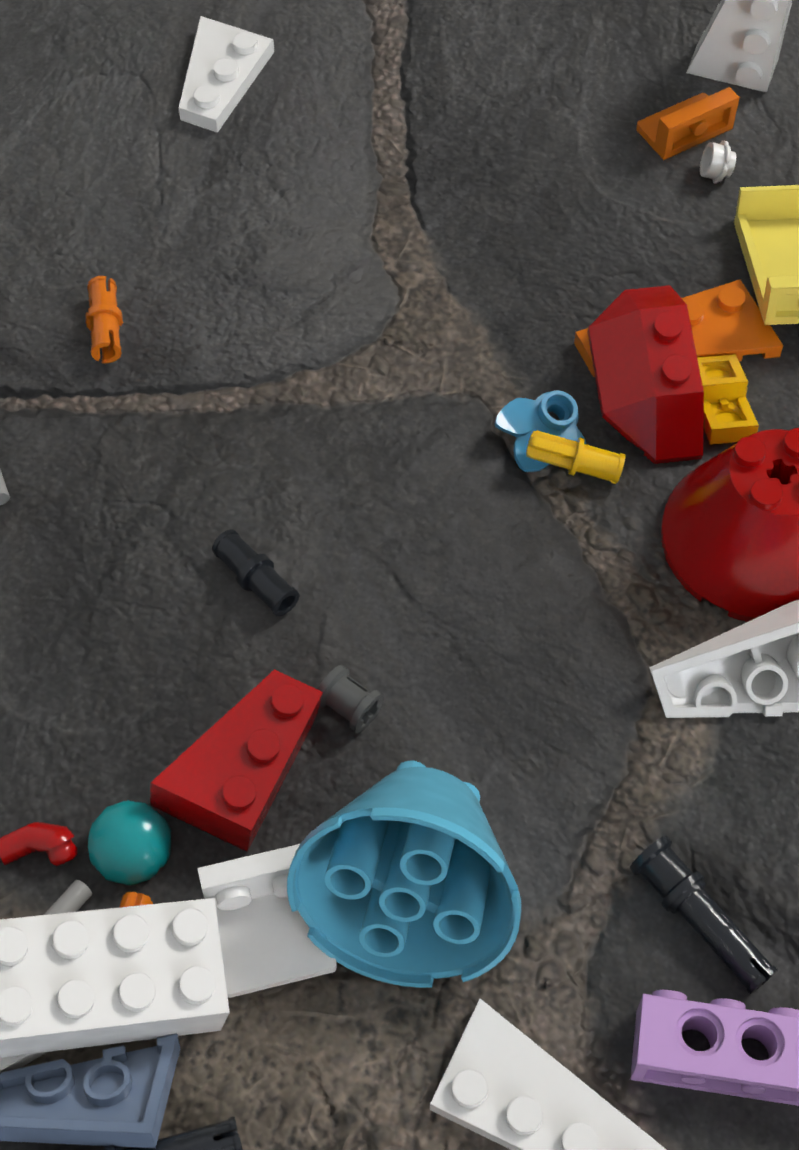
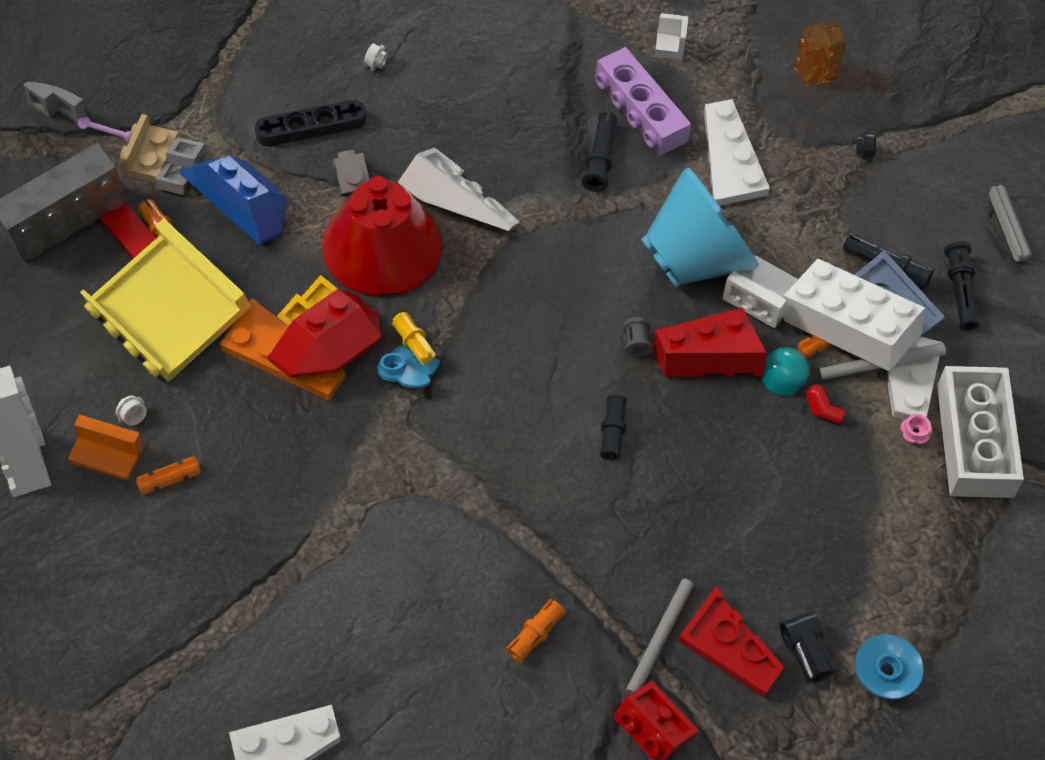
camera: 135 degrees left, 0 degrees up
(605, 151) = (168, 475): none -> orange axle

